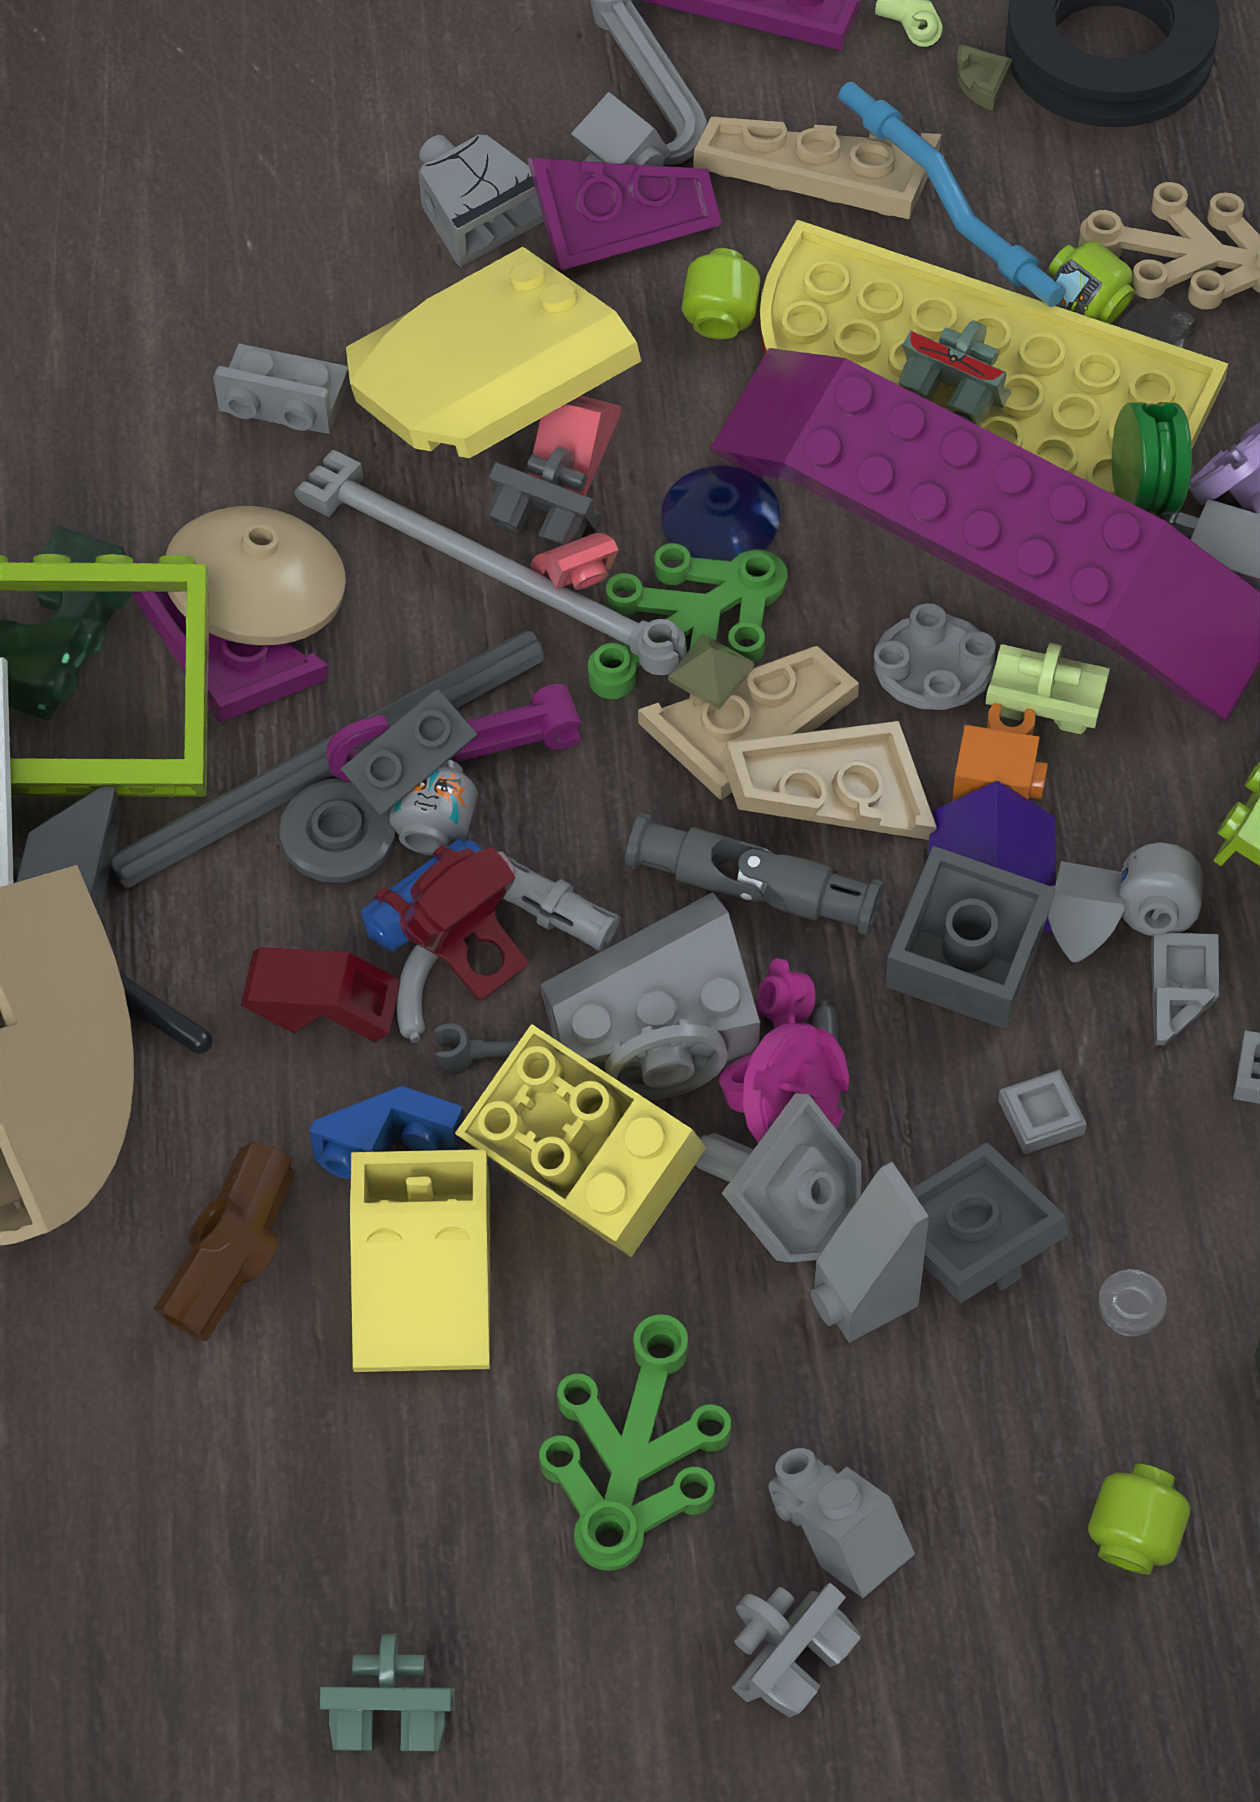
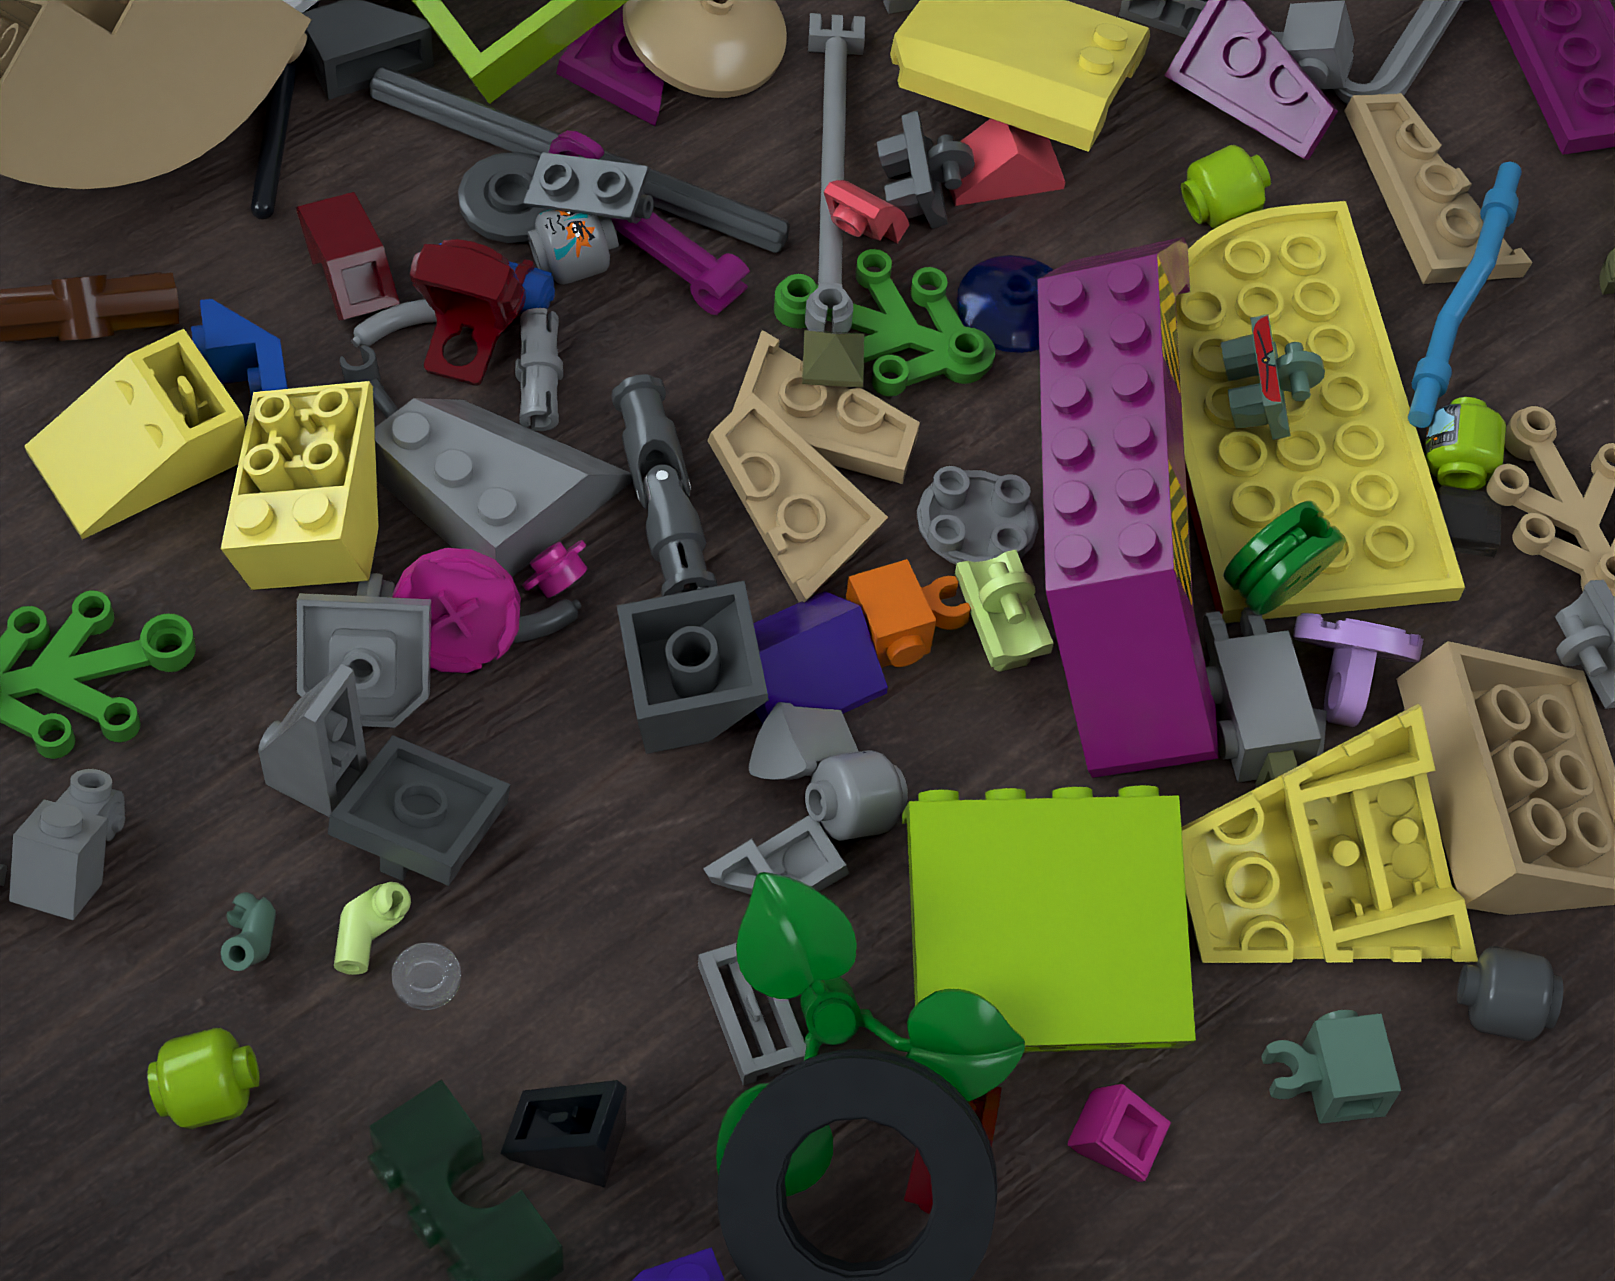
camera: 50 degrees right, 0 degrees up
(668, 1059) = (421, 503): light grey wheel -> none
(1010, 1418) = (257, 925): none -> sand green arm
(1042, 1112) = (579, 818): light grey tile -> none
(1045, 1322) = (366, 920): none -> yellowish green arm

